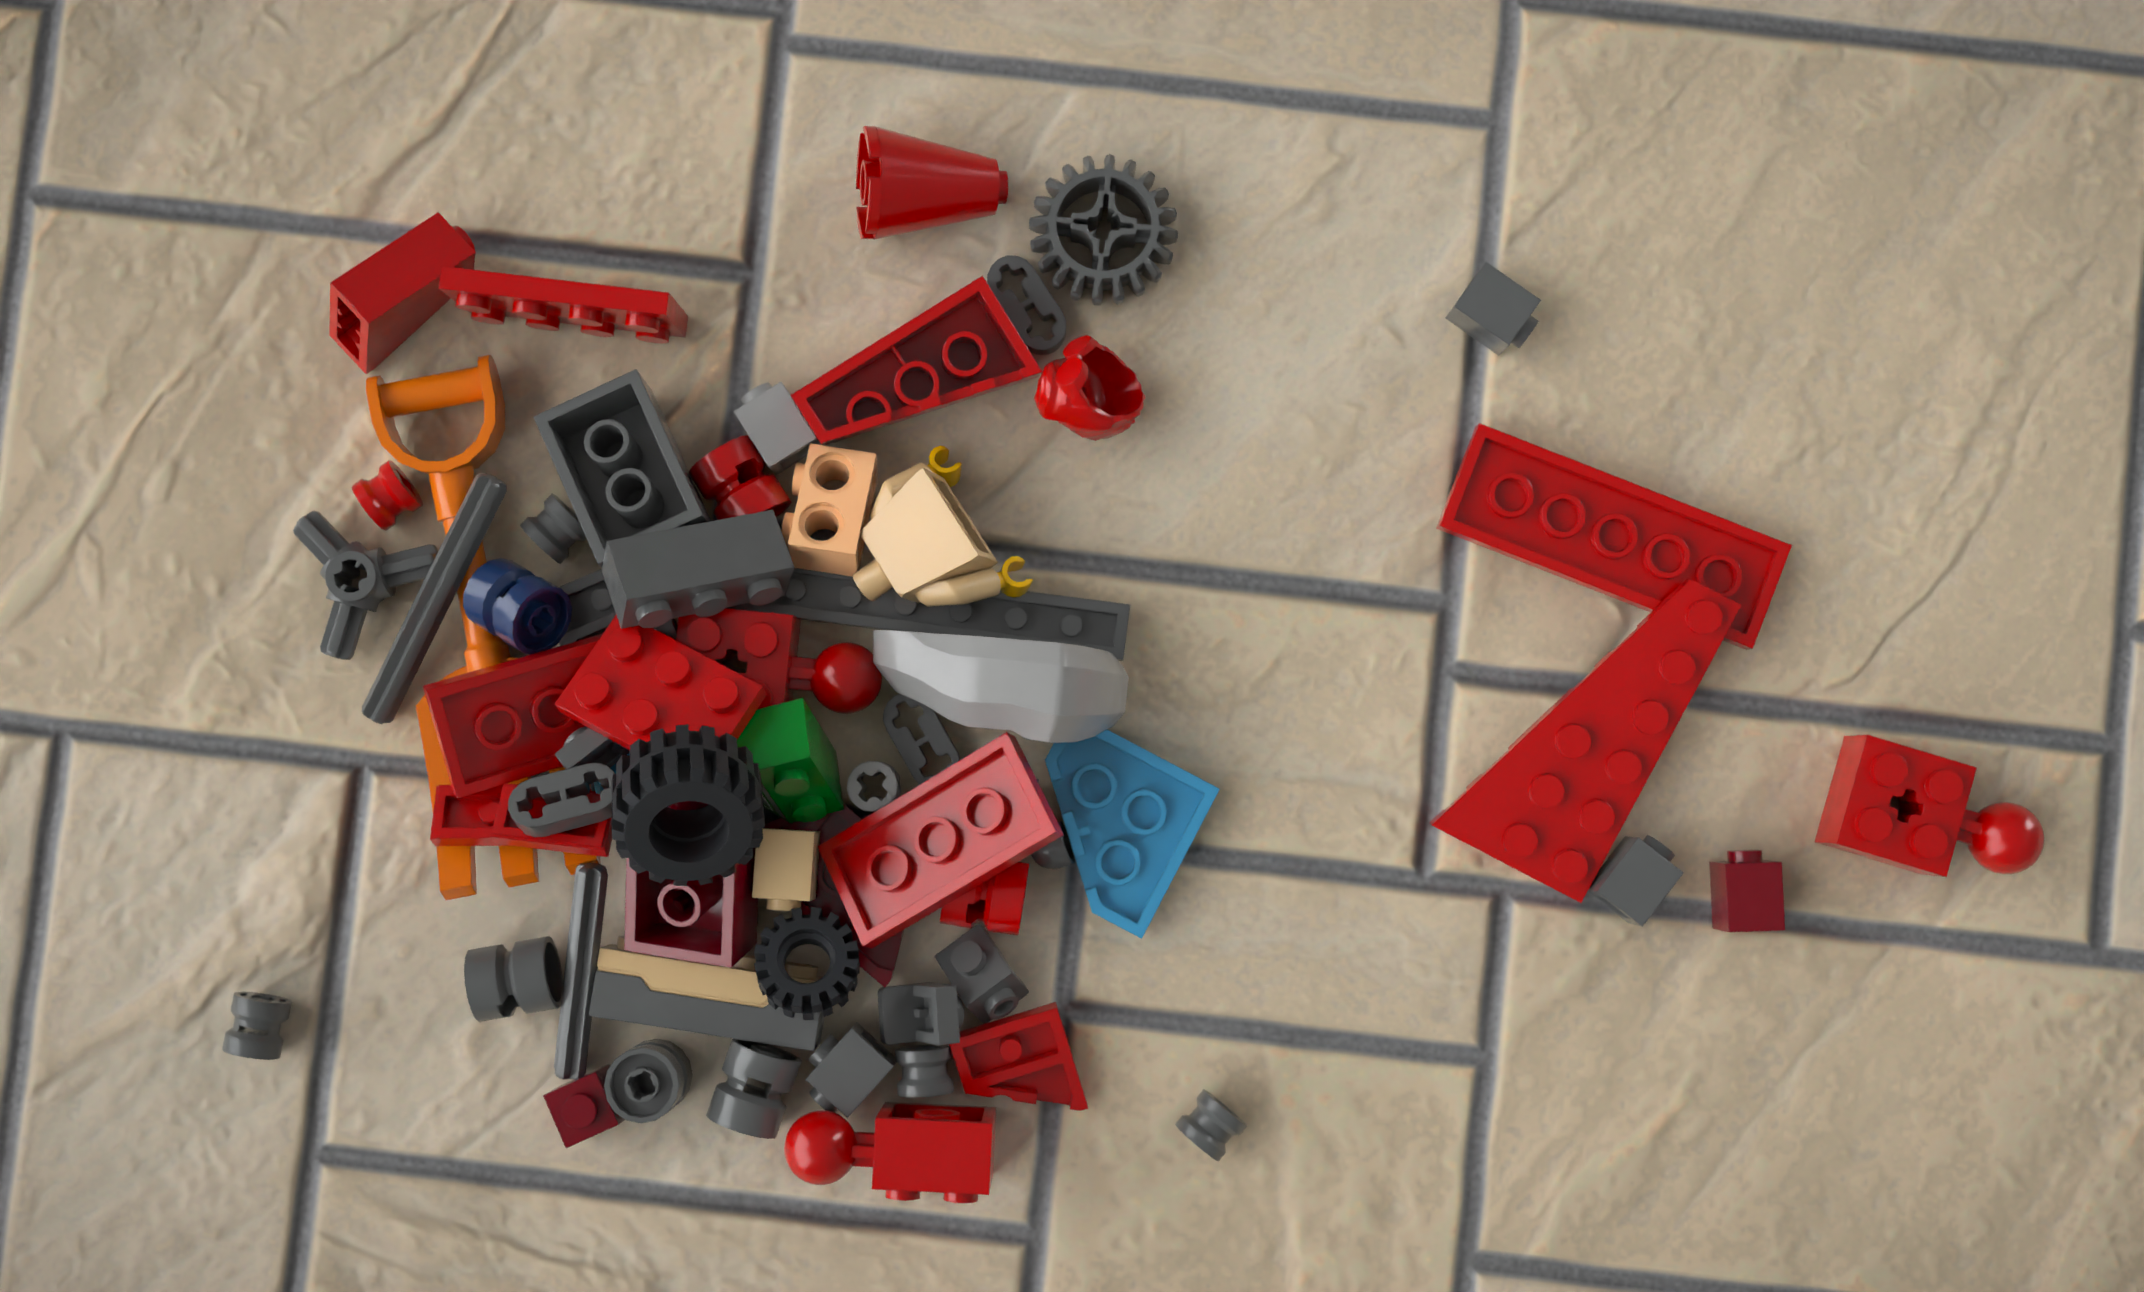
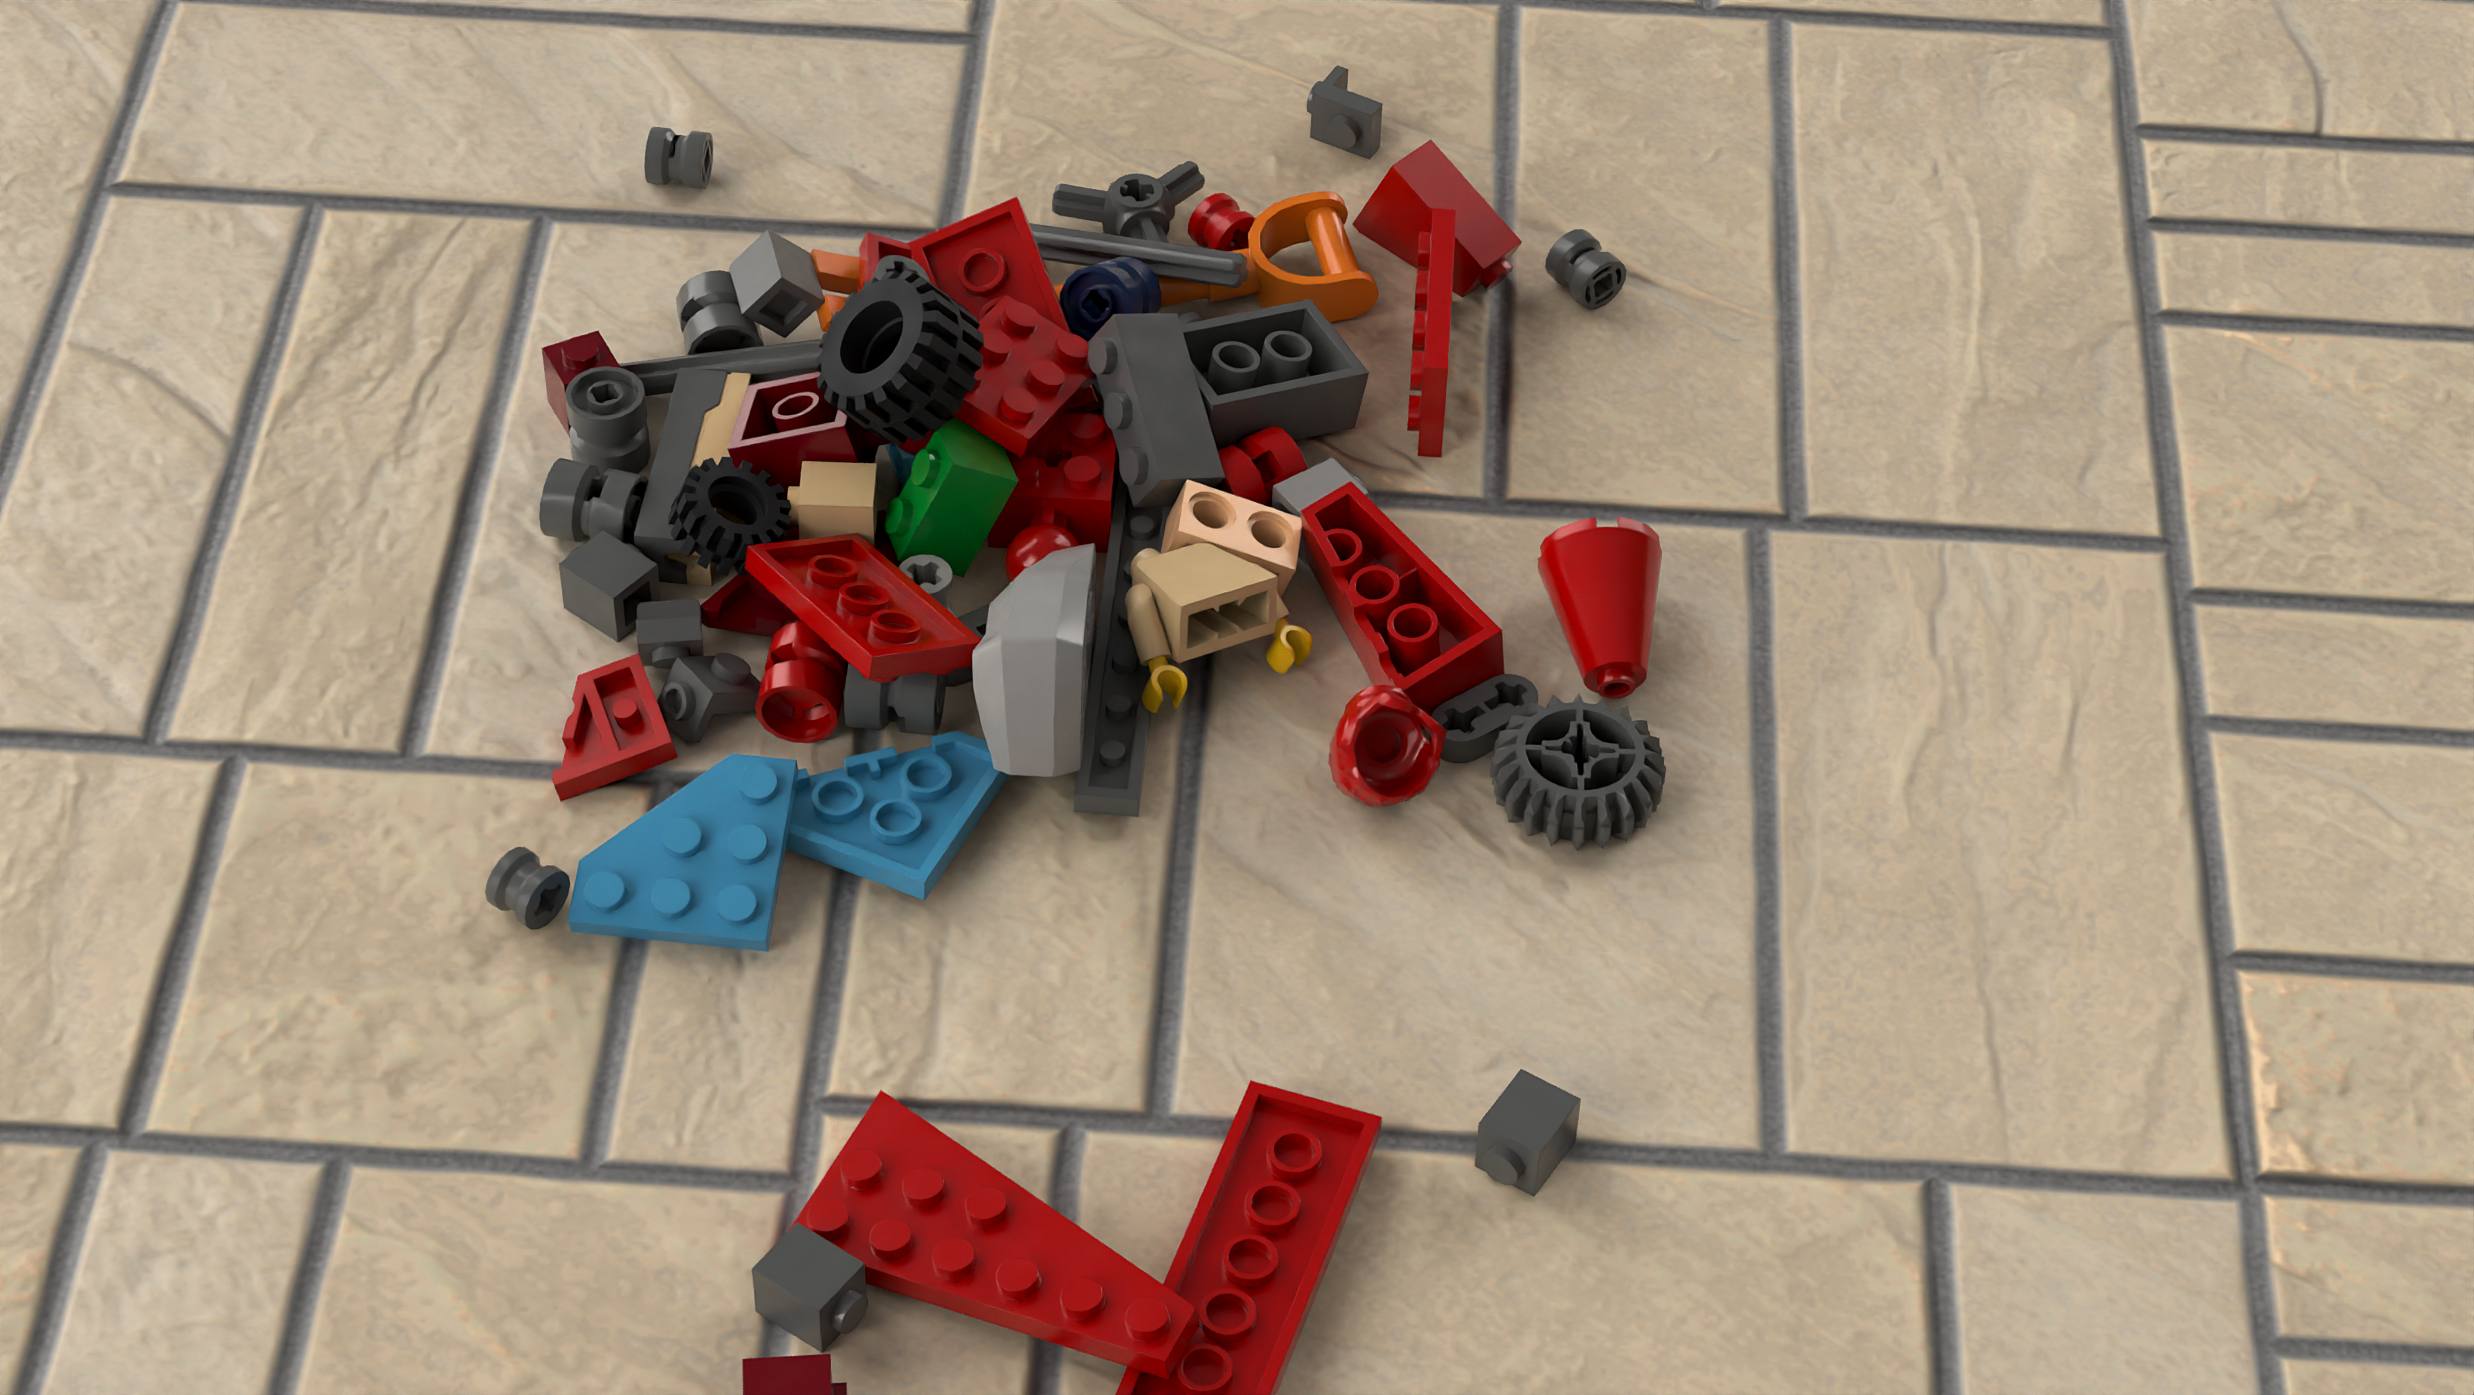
camera: 85 degrees right, 40 degrees down
(229, 370) = (1344, 117): none -> dark grey bracket
(469, 150) = (1580, 263): none -> dark grey wheel
(484, 925) = (776, 283): none -> dark grey panel
(910, 1152) = (519, 619): red brick -> none
(924, 1070) = (603, 640): dark grey wheel -> none
(1057, 853) = (853, 741): dark grey hinge -> none
(1189, 981) = (697, 863): none -> dark azure plate

